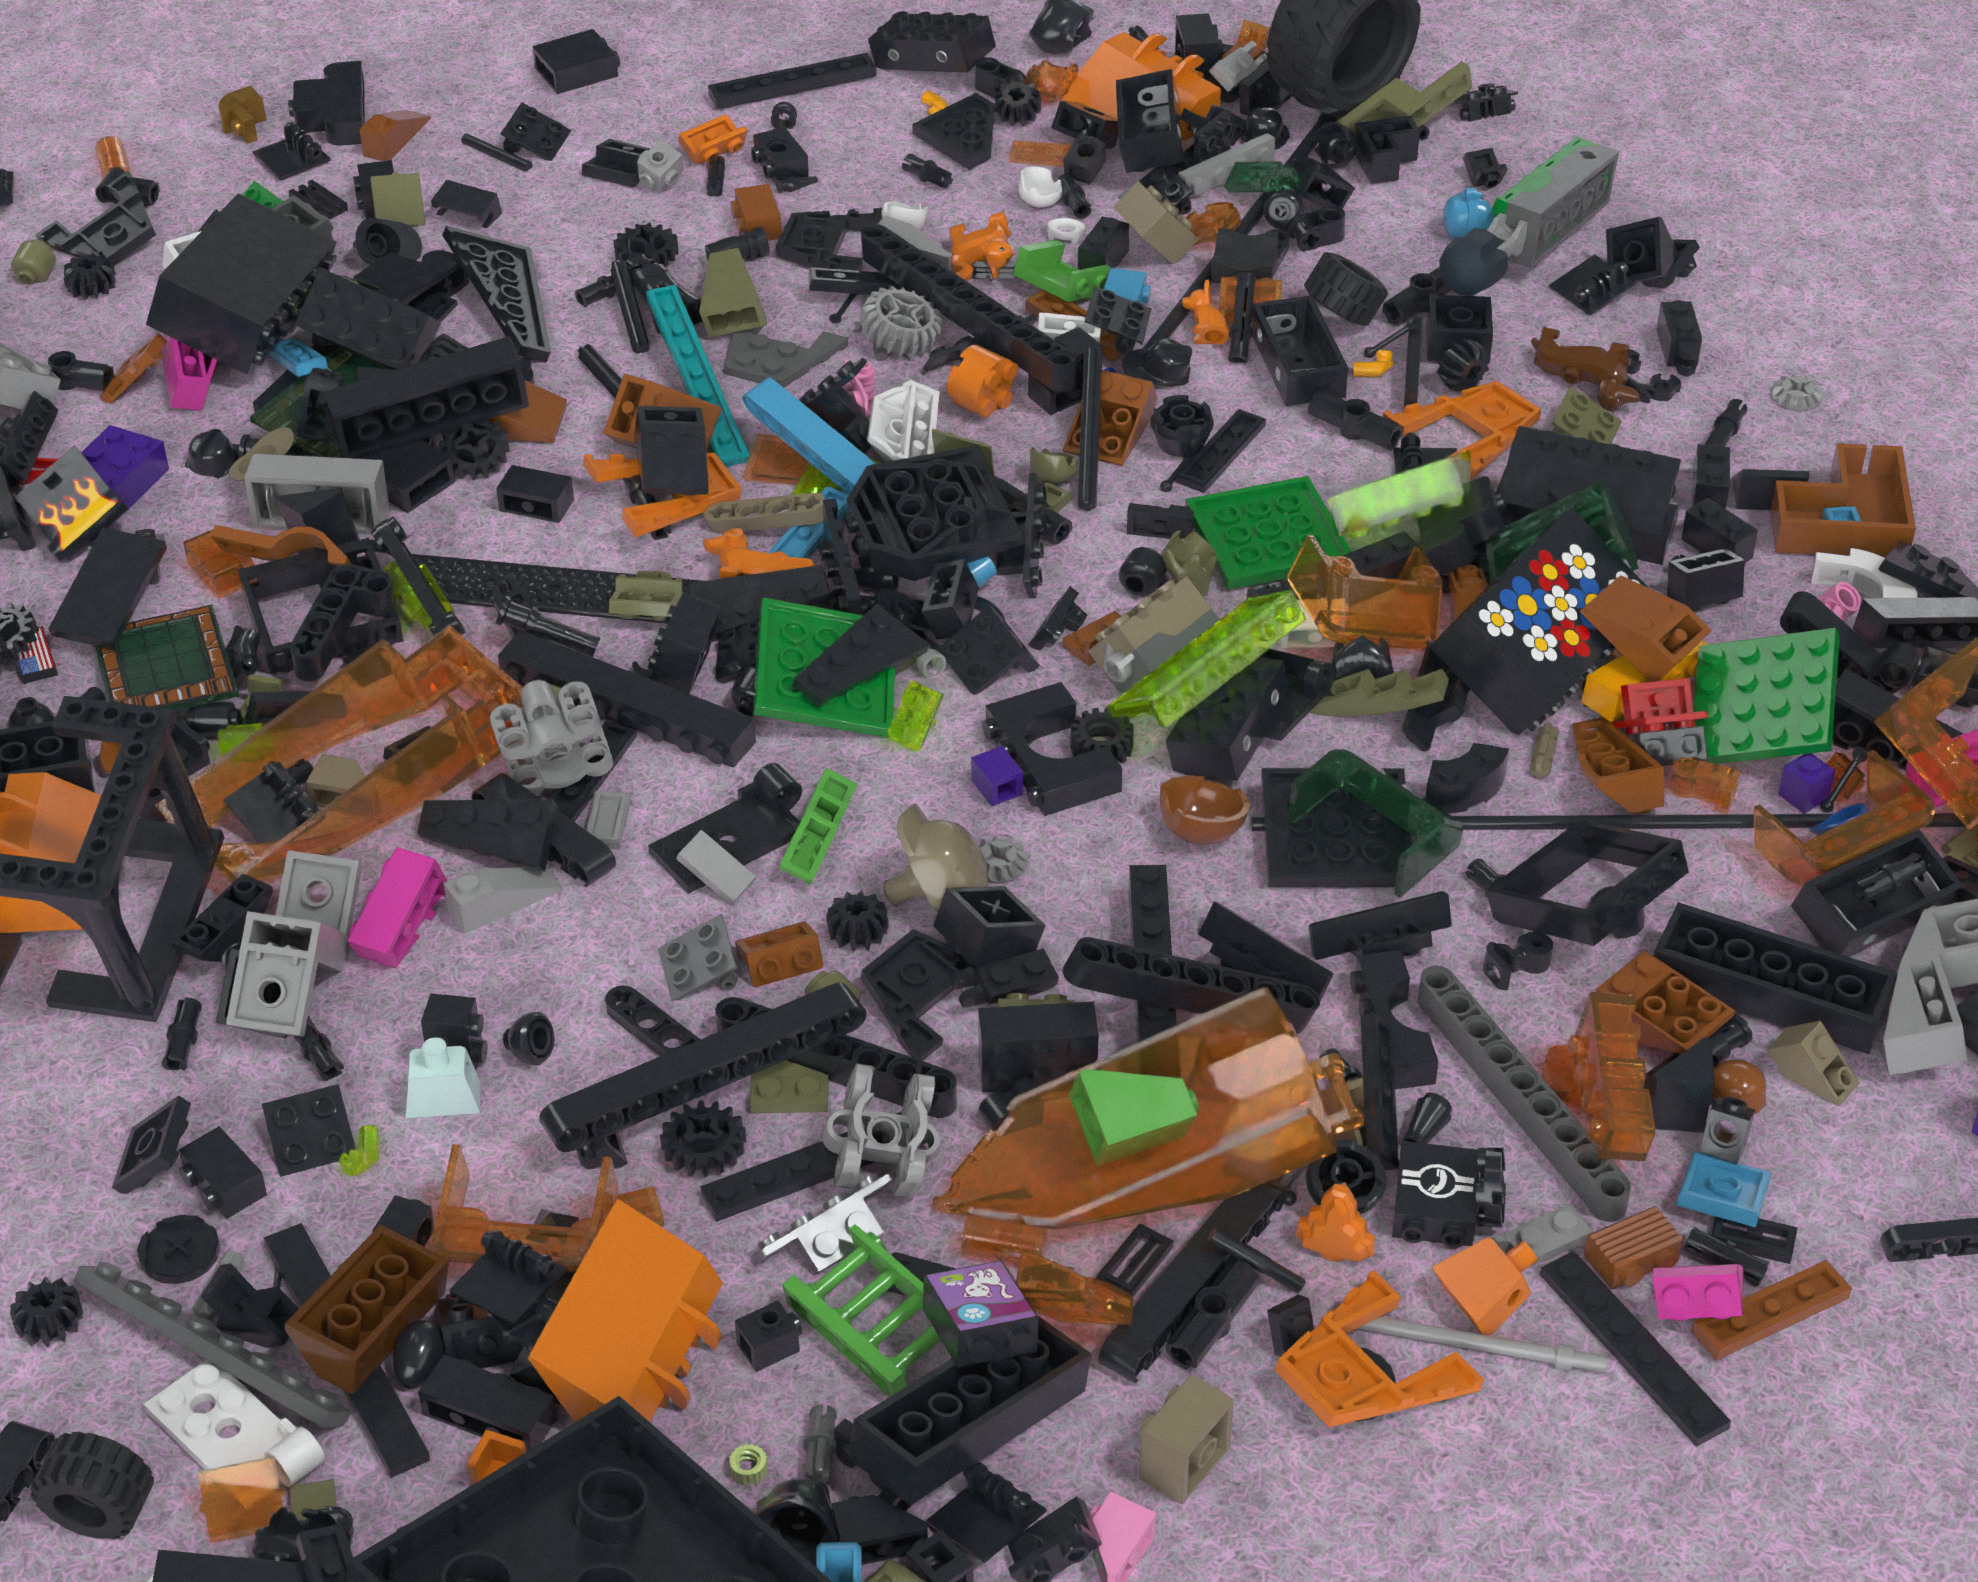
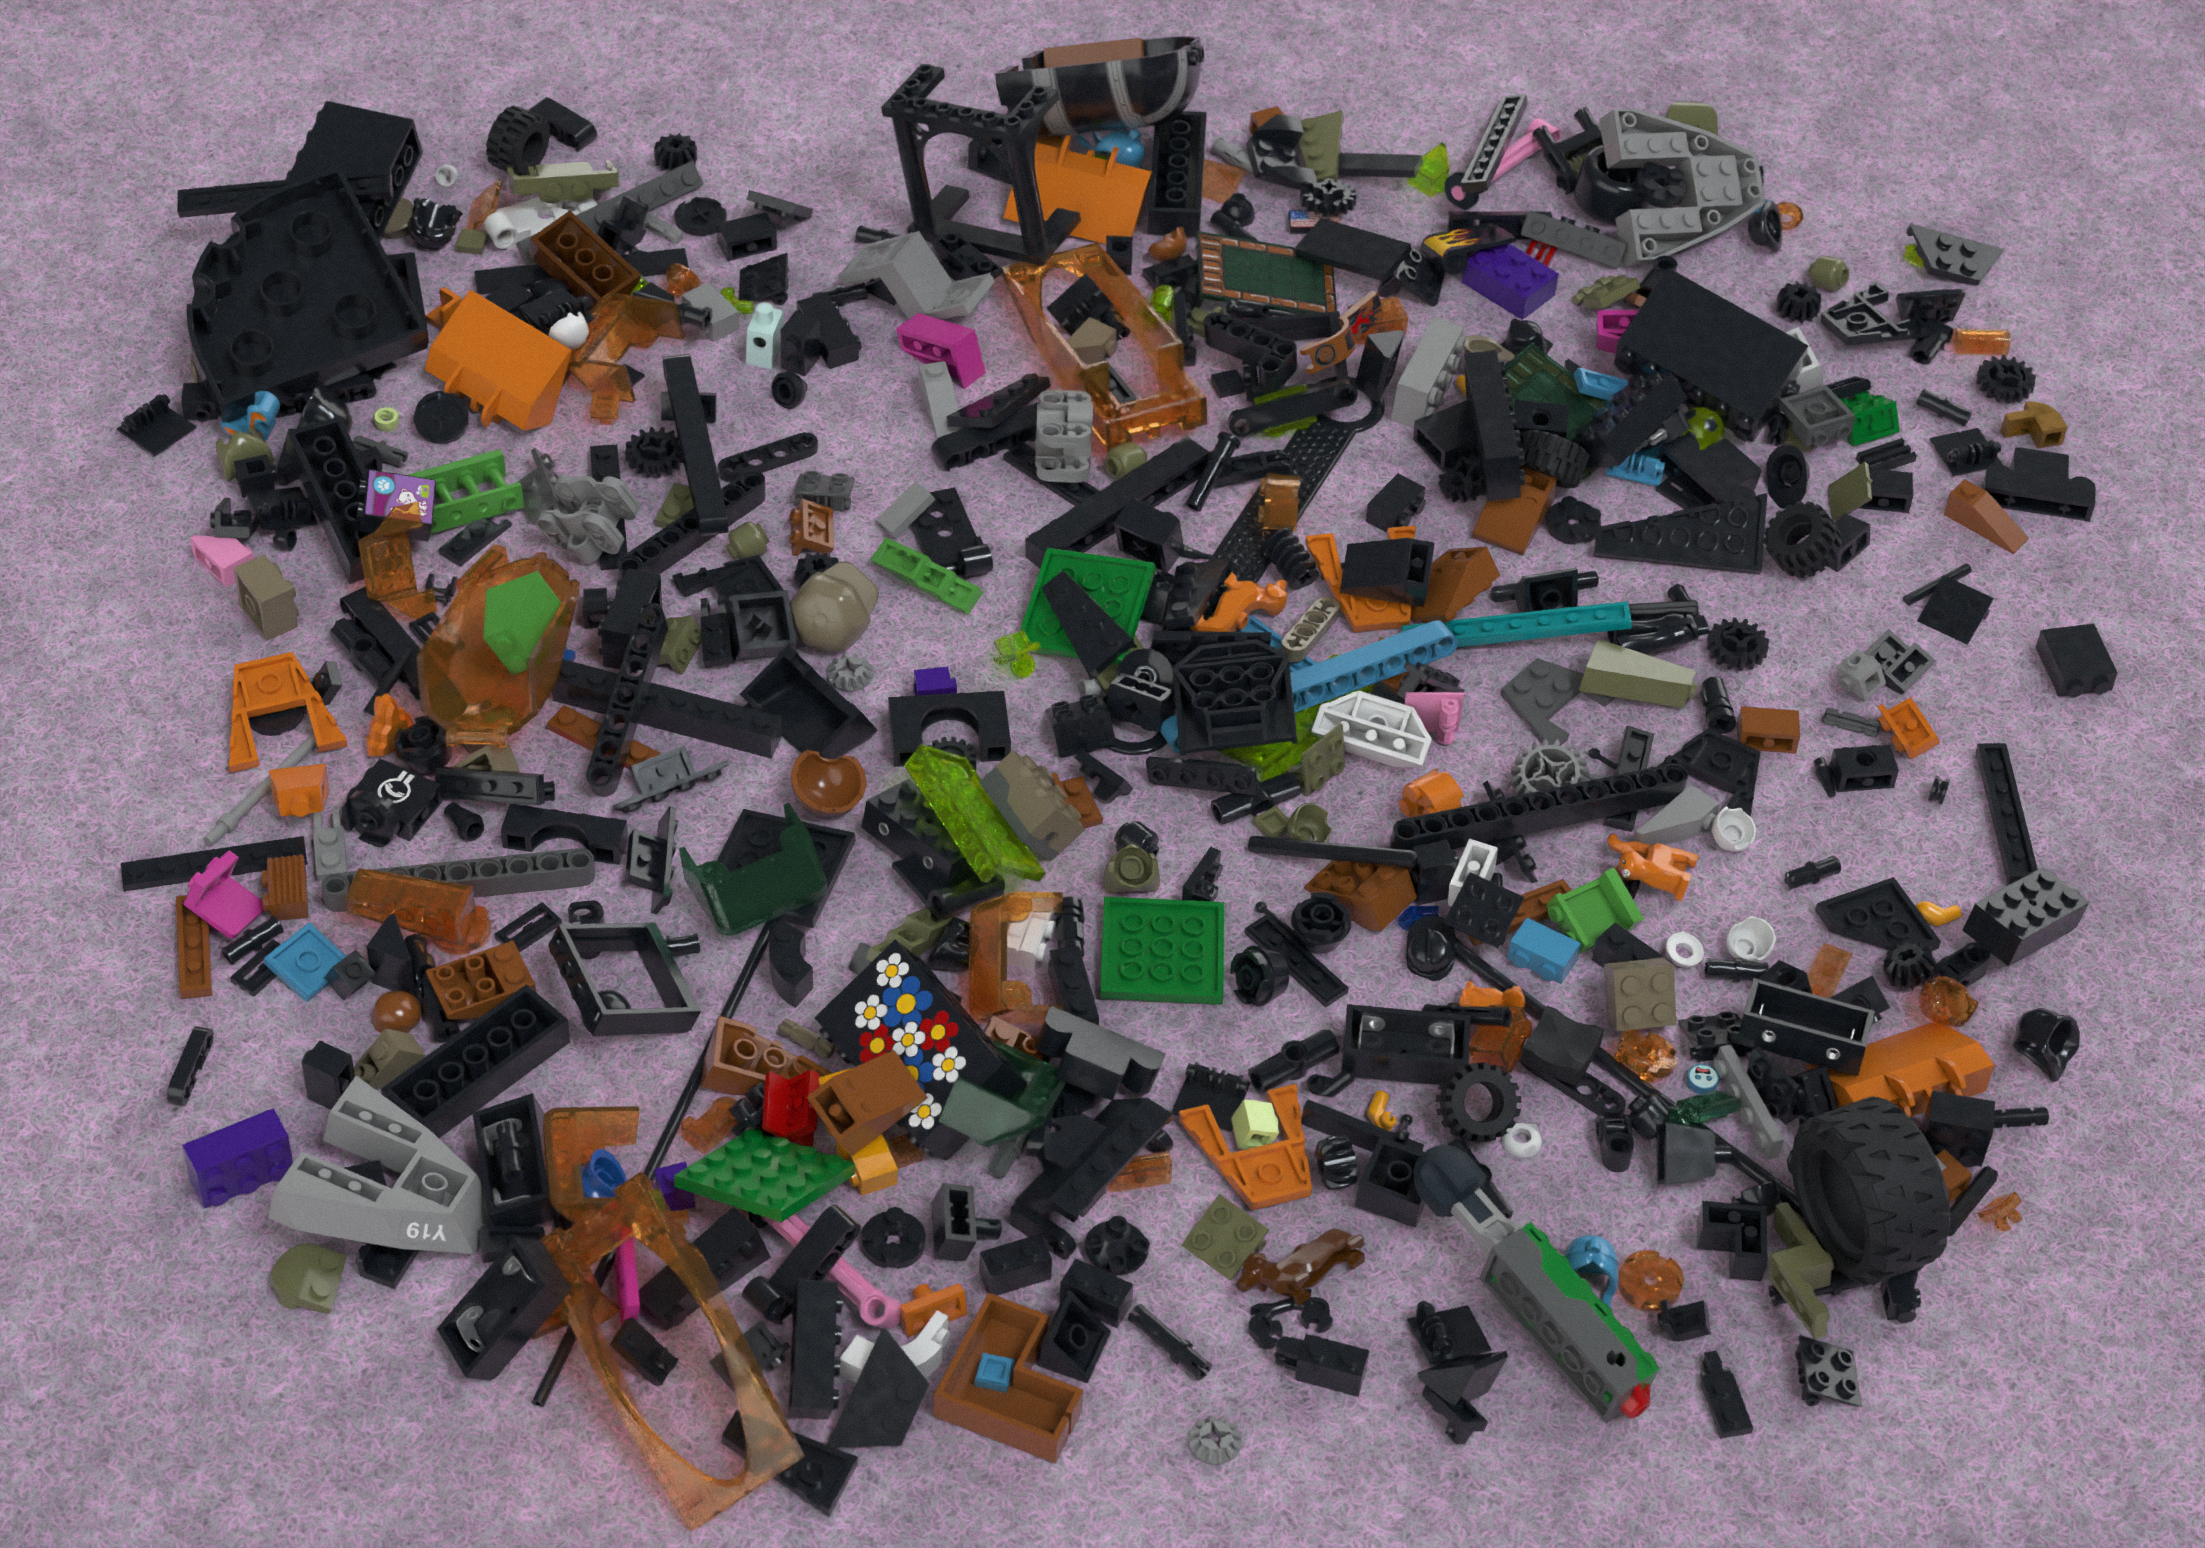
camera: 105 degrees right, 5 degrees up
(78, 196) = (1934, 304): none -> black bracket
(119, 394) = (1605, 291): none -> olive plate
(175, 138) = (2006, 379): none -> black gear
(181, 1392) = (563, 181): none -> olive bracket
(230, 172) = (1944, 407): none -> black pin
(314, 402) = (1530, 376): black torso -> none
(341, 1217) = (681, 279): none -> clear orange brick
(386, 1037) = (837, 341): none -> black brick
(400, 1163) = (724, 316): none -> light grey brick
(435, 1159) = (688, 314): none -> black pin
(497, 190) = (1811, 553): none -> black tyre
(559, 1233) = (570, 331): none -> white hair
(579, 564) = (1280, 501): none -> clear orange brick
(609, 817) = (996, 476): light grey tile -> none
(633, 357) = (1547, 590): none -> black slope
(645, 595) = (1232, 538): olive slope -> none
(661, 546) = (1291, 559): none -> black piece
(729, 1390) = (441, 417): none -> black tile
(768, 1335) = (472, 439): black brick -> none
(1043, 1488) = (285, 538): none -> black hinge
(1090, 859) = (809, 707): none -> black windscreen
(1209, 196) = (1702, 1079): none -> tile
(1274, 450) = (1259, 975): none -> black cone
(1358, 391) = (1329, 1086): none -> black arm
(1402, 494) = (1146, 1026): clear neon green slope -> none
(1443, 186) = (1647, 1296): none -> clear orange plate
(1450, 425) = (1254, 1124): none -> yellowish green brick
(1538, 146) = (1724, 1398): none -> black hinge
(1540, 1021) = (531, 932): none -> black tile
(1735, 615) = (888, 1223): none -> black plate
(1800, 575) = (918, 1312): none -> orange tile
(1883, 1086) = (327, 1073): none -> black brick

